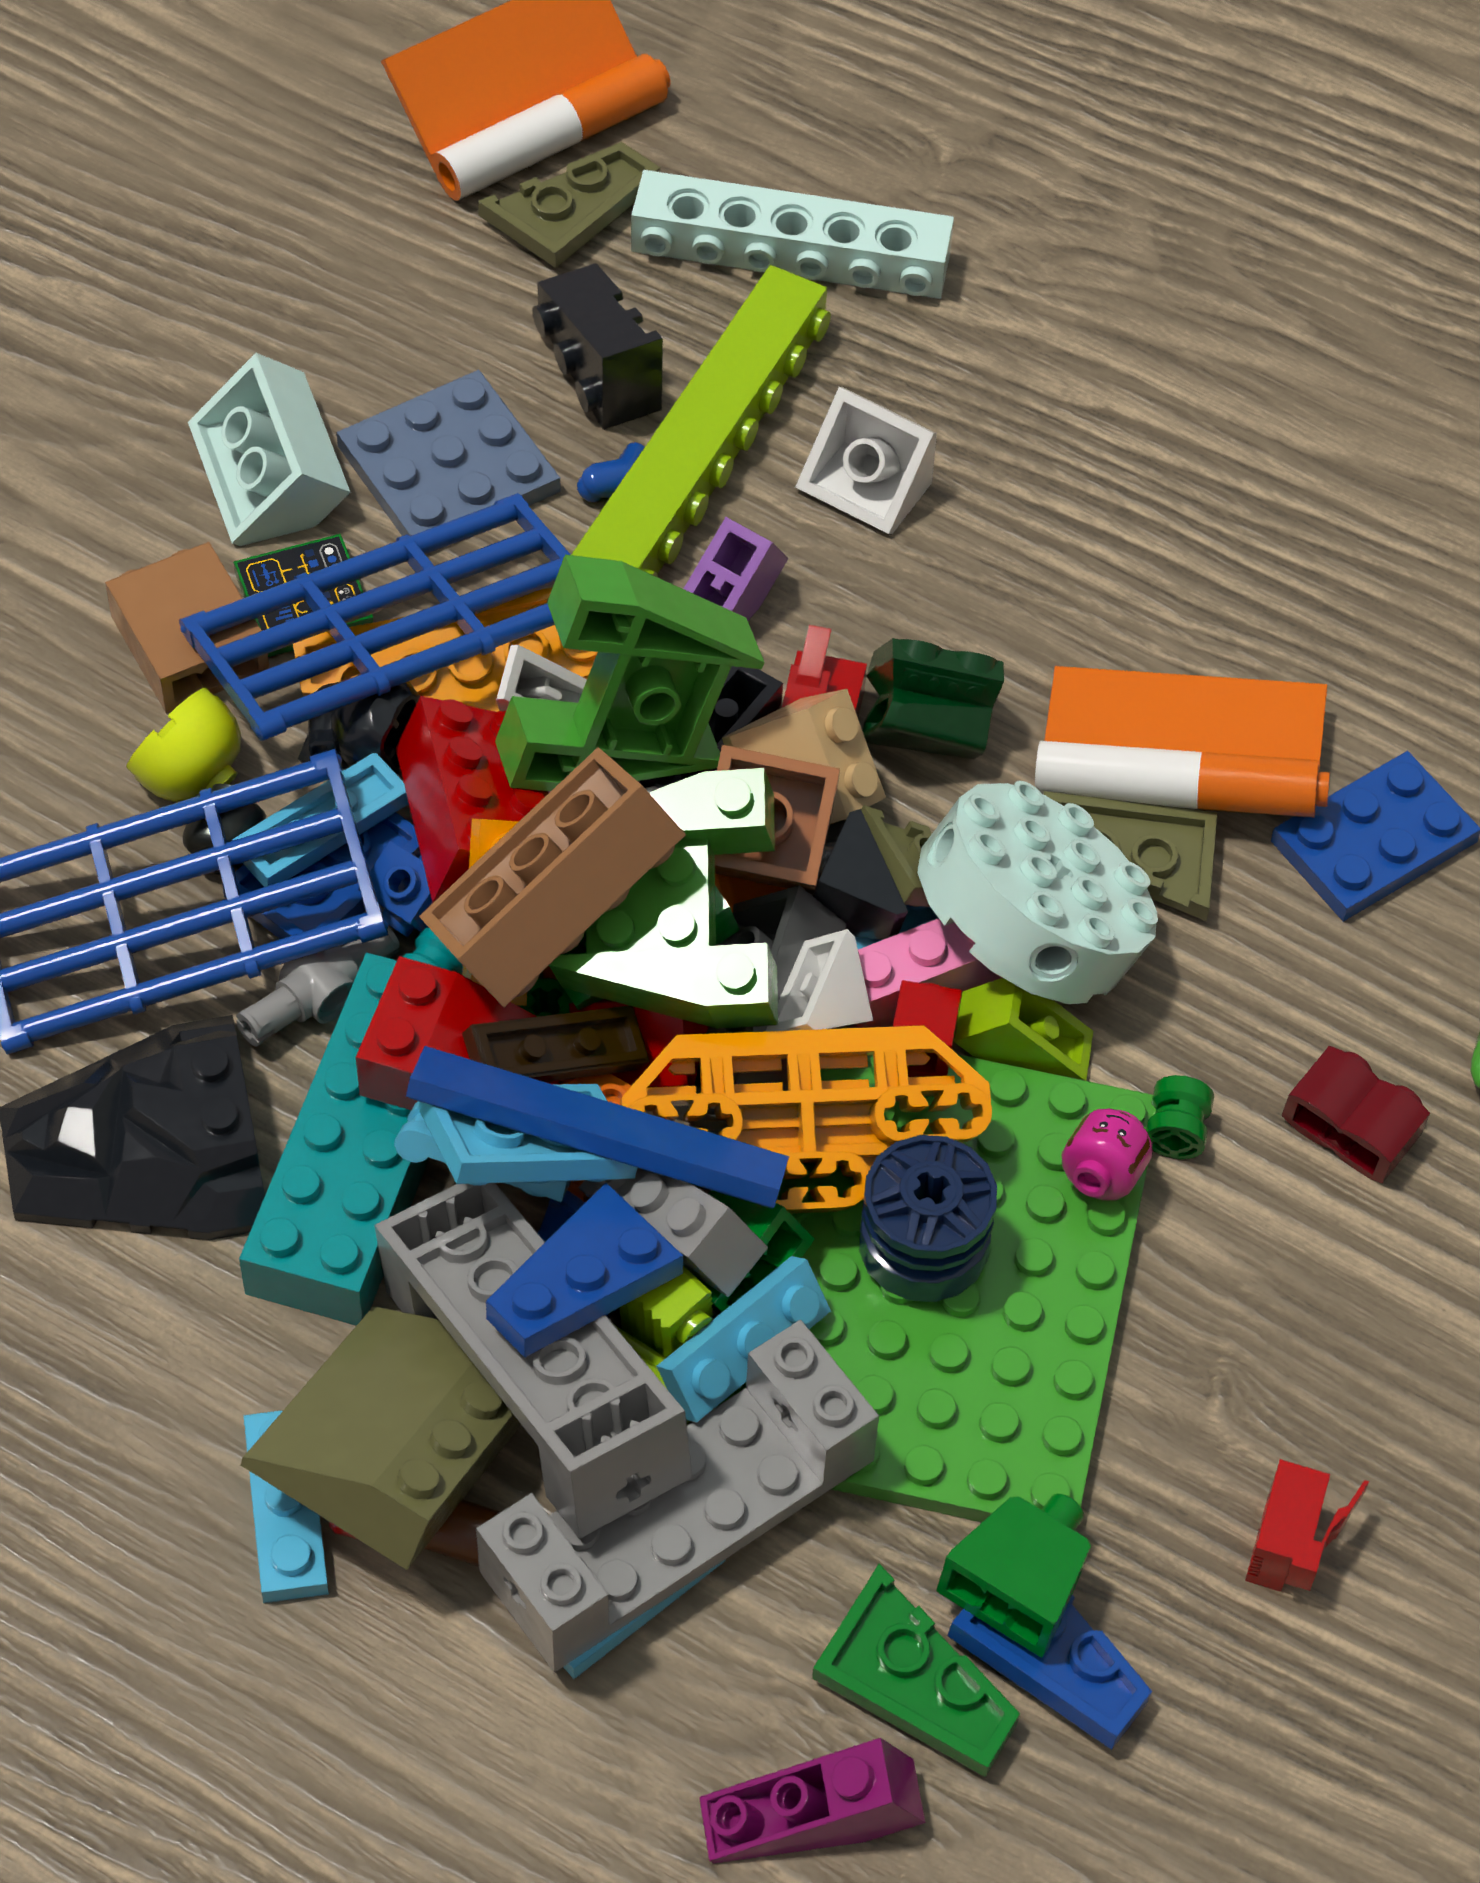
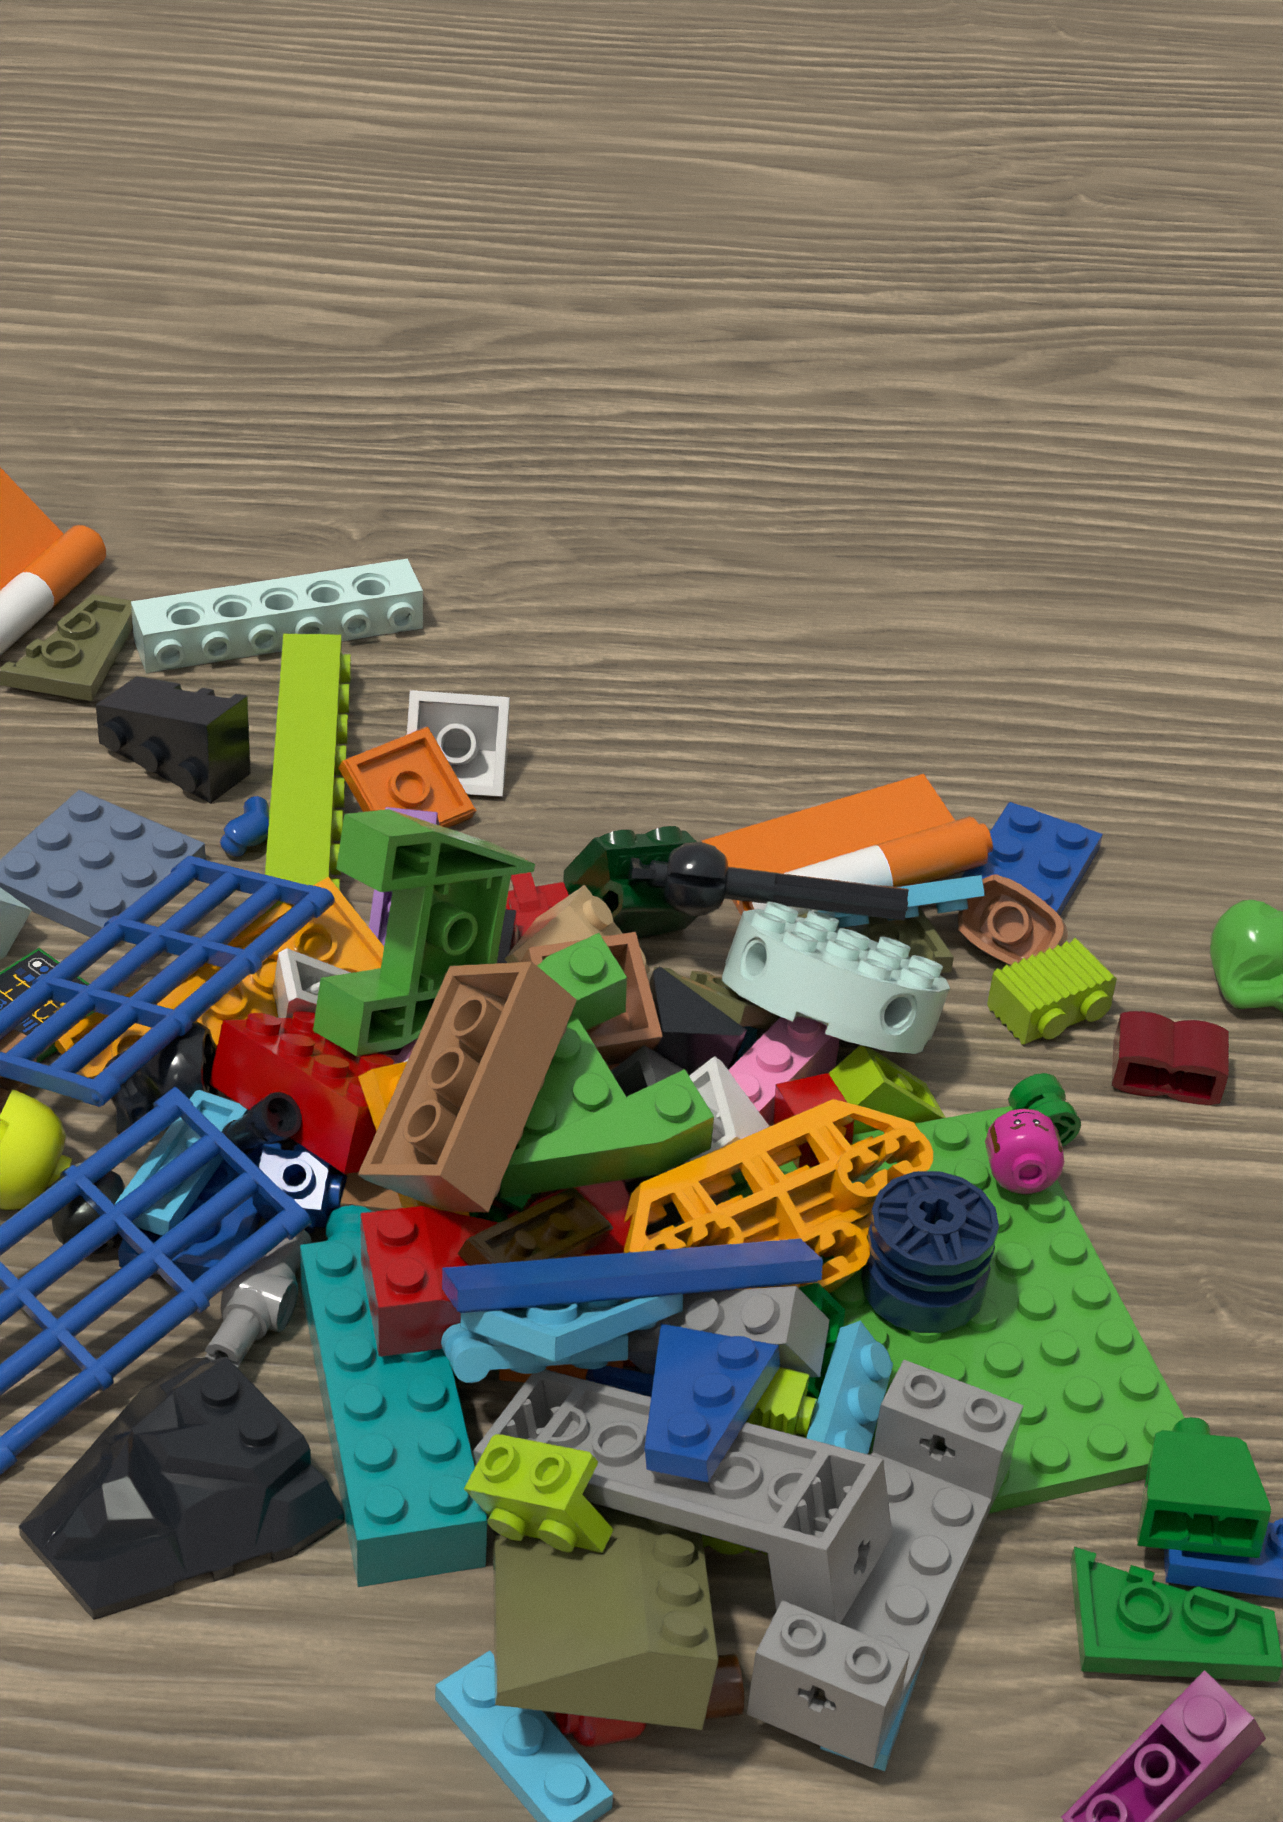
camera: 30 degrees left, 15 degrees down
(396, 1288) = (538, 1493): none -> lime bracket
(397, 819) = (267, 1122): none -> black pin
(789, 490) = (408, 776): none -> orange tile
(972, 725) = (700, 880): none -> black piece
(1186, 825) = (947, 894): none -> medium azure plate
(1286, 989) = (1051, 991): none -> lime brick
(1293, 898) = (1011, 921): none -> nougat piece

